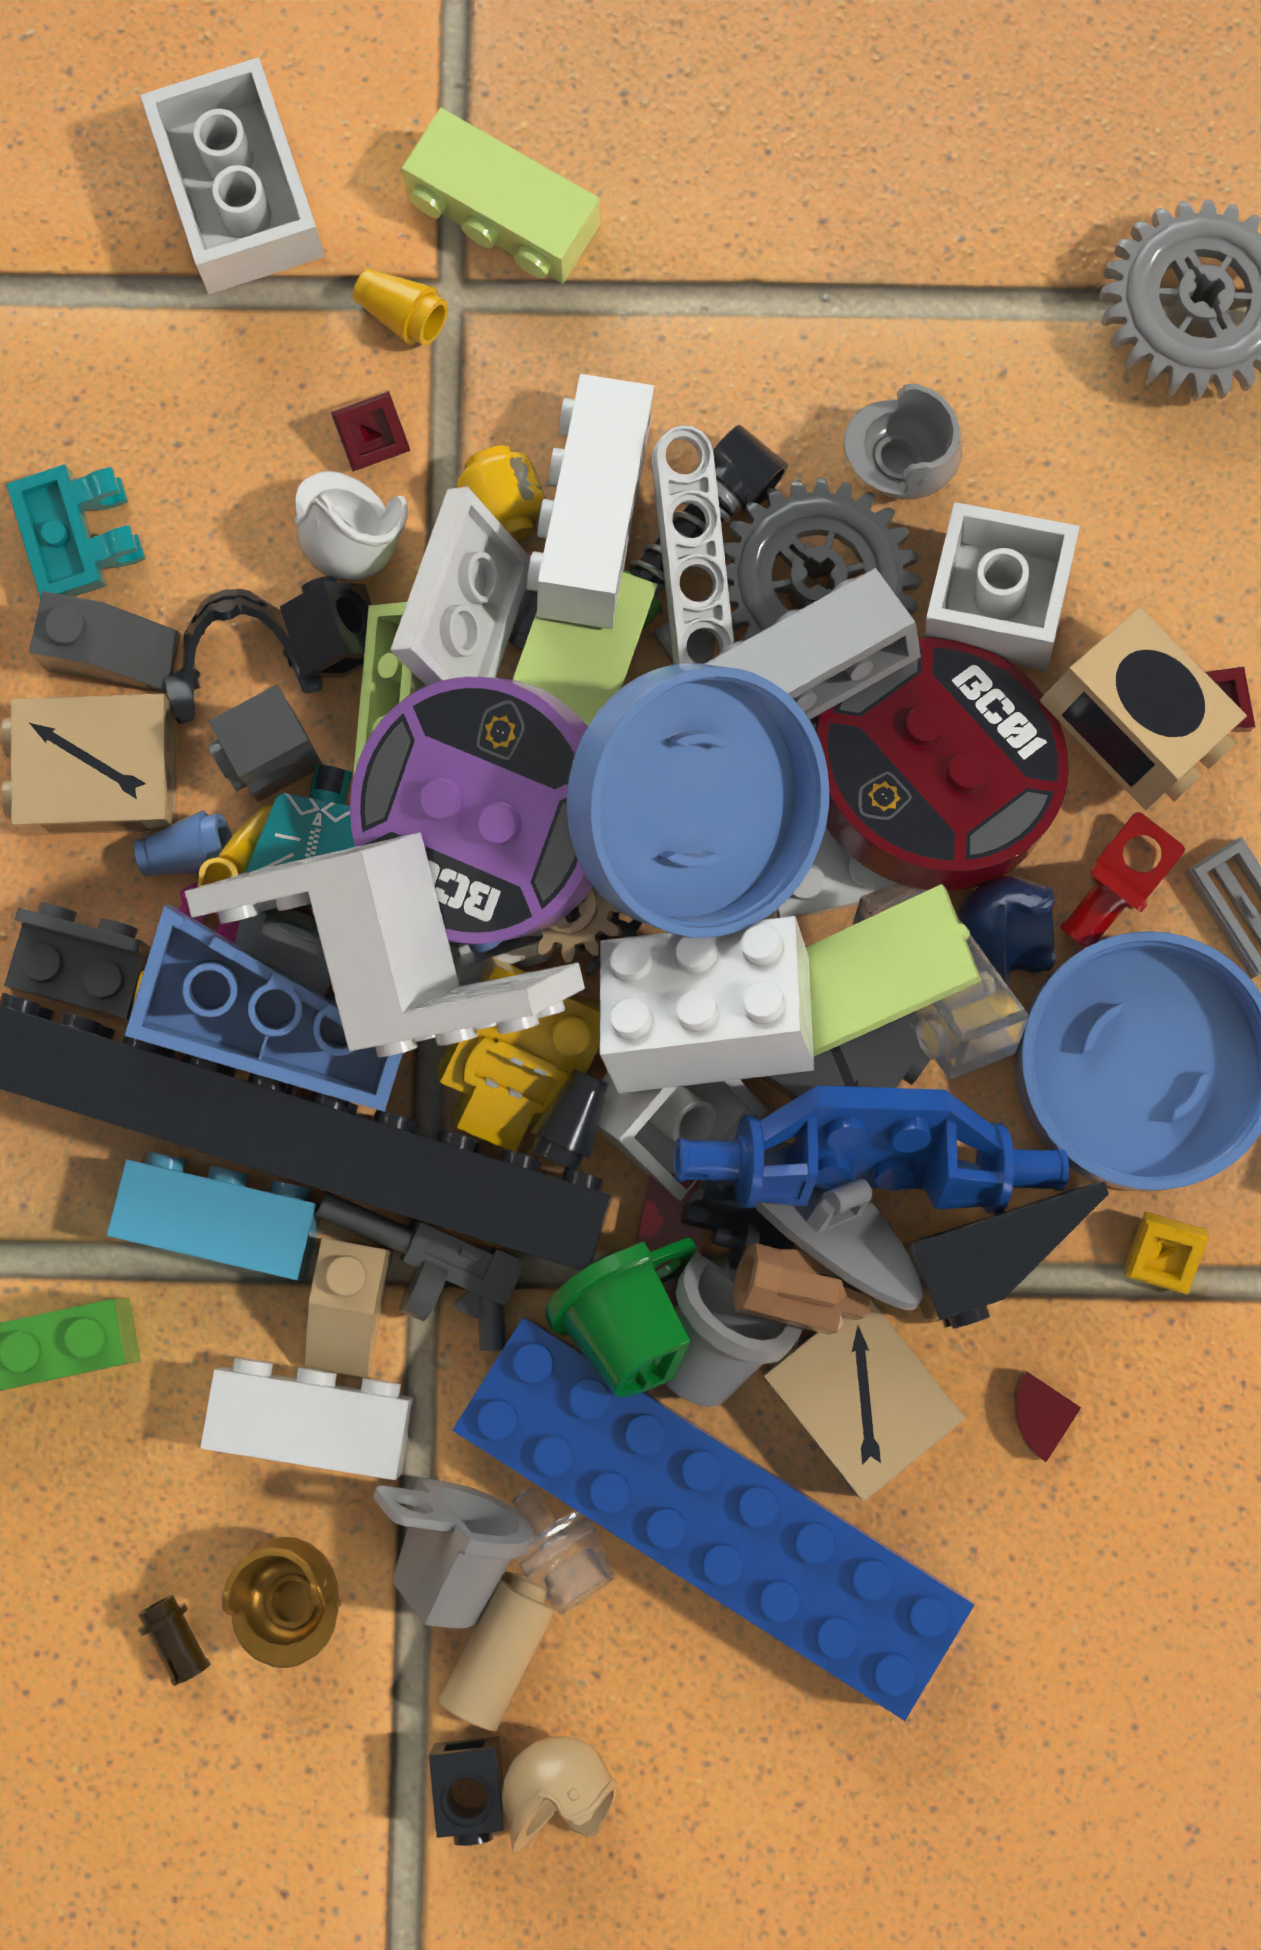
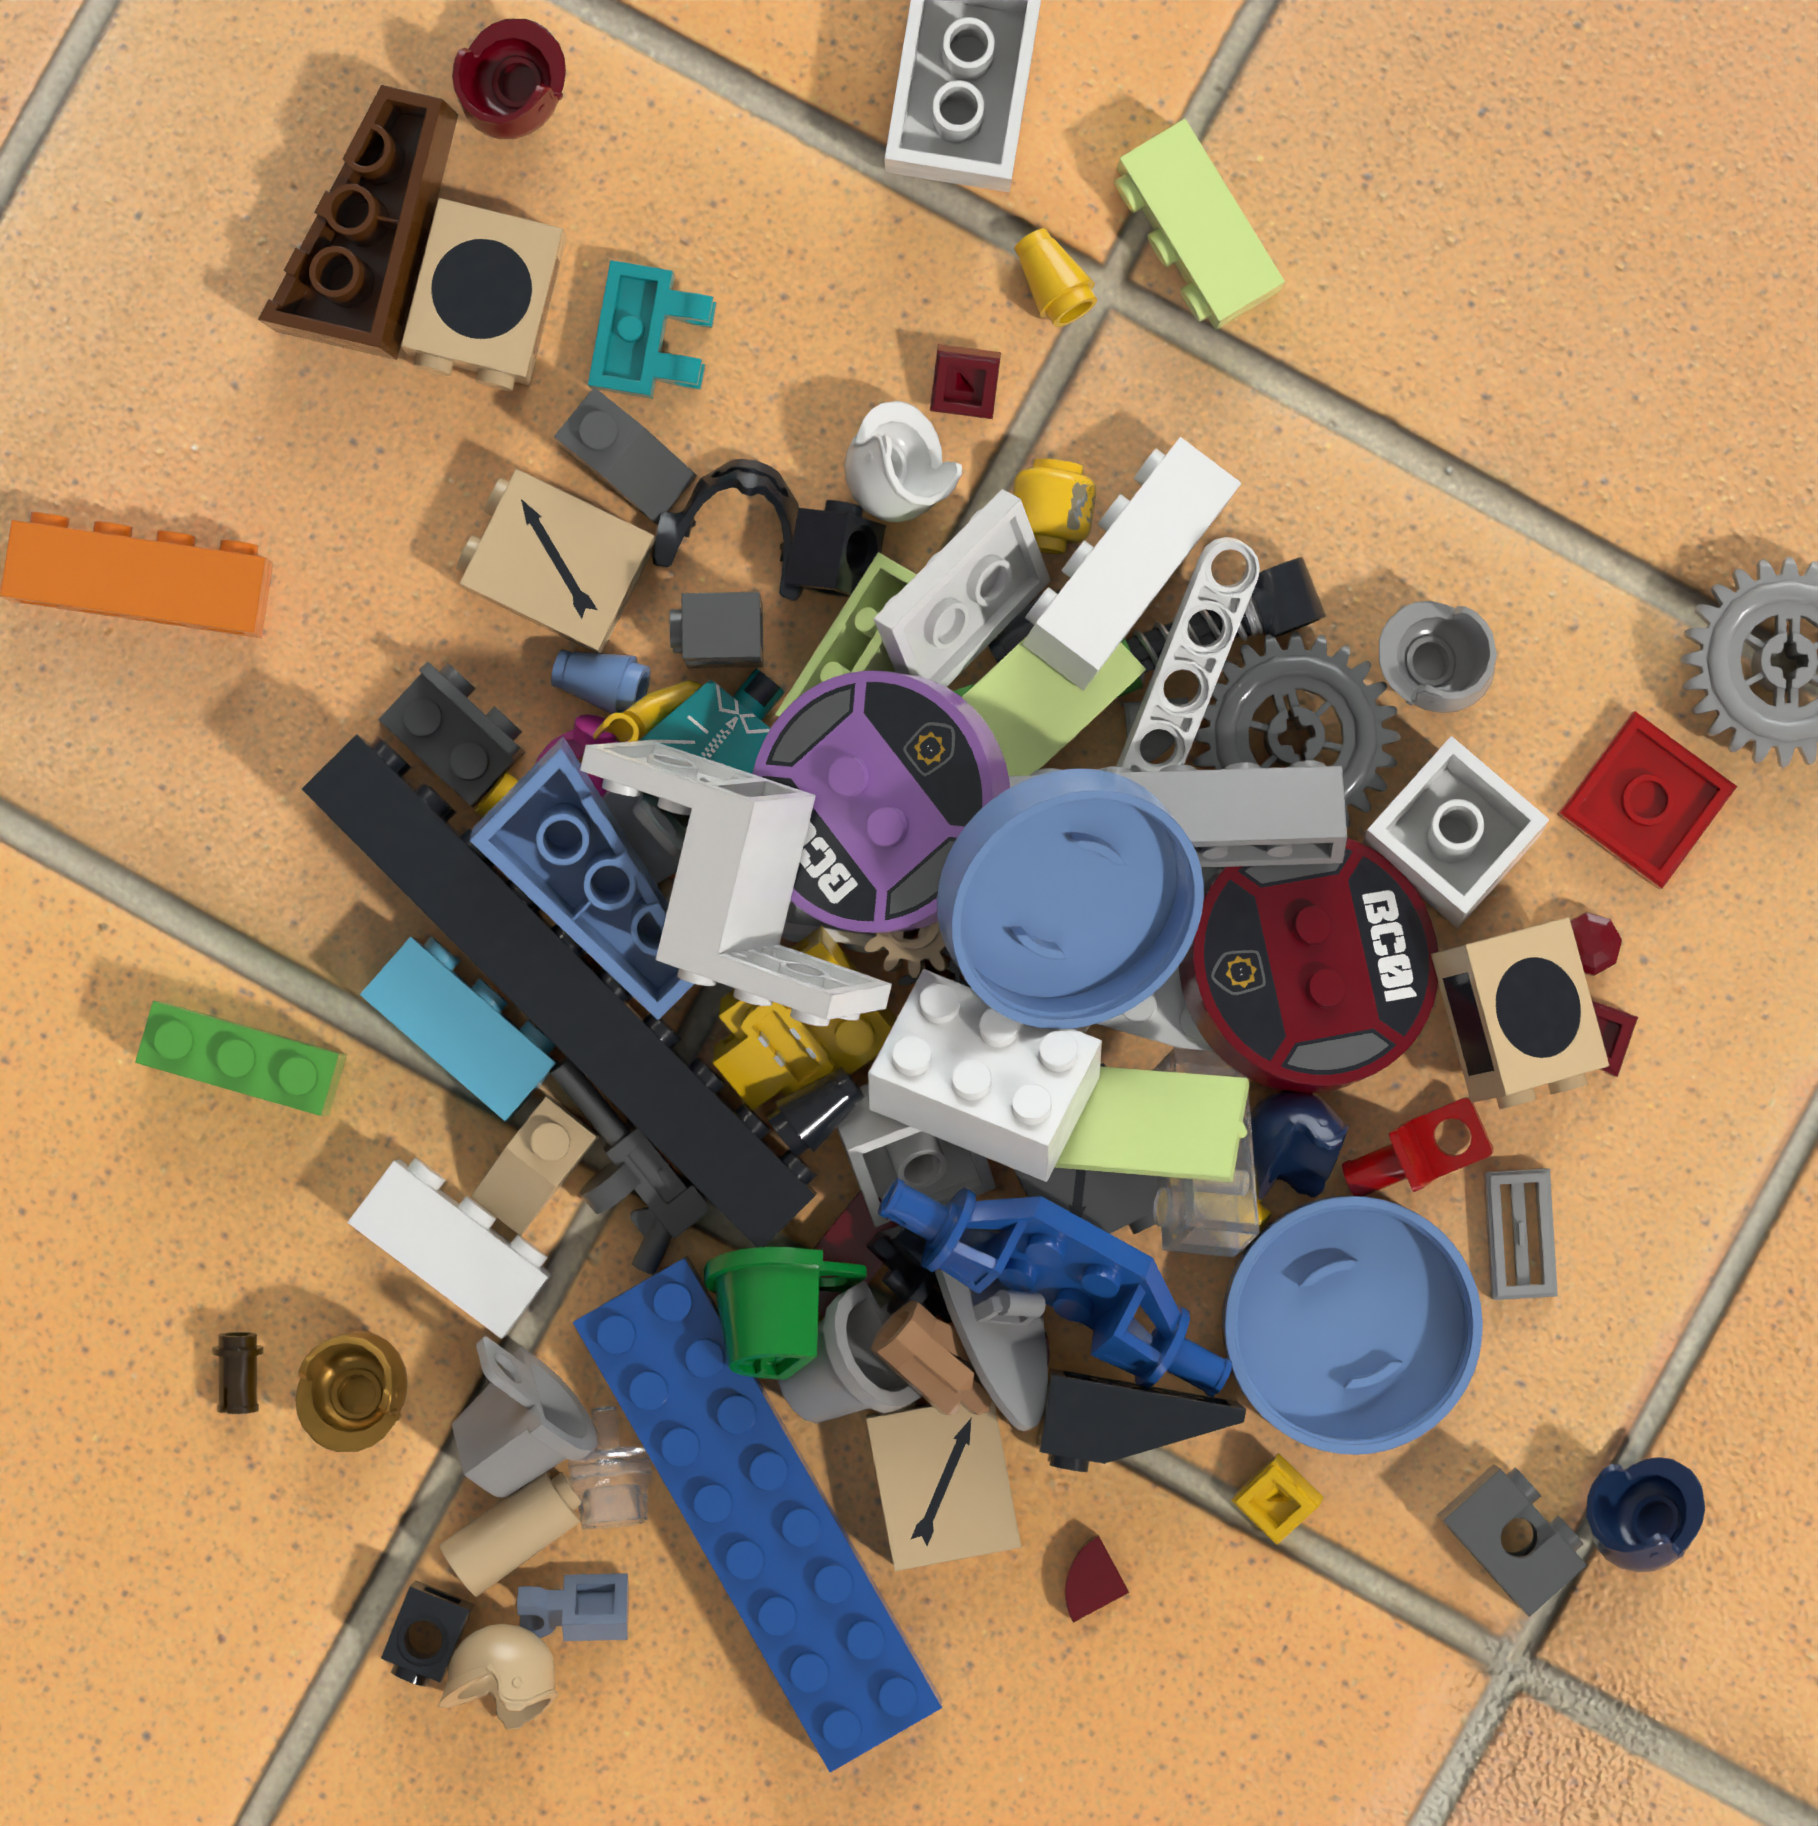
camera: 20 degrees right, 5 degrees up
(602, 1687) = (586, 1608): none -> sand blue plate
(1147, 481) = (1647, 800): none -> red tile
(1175, 618) = (1596, 942): none -> dark red tile

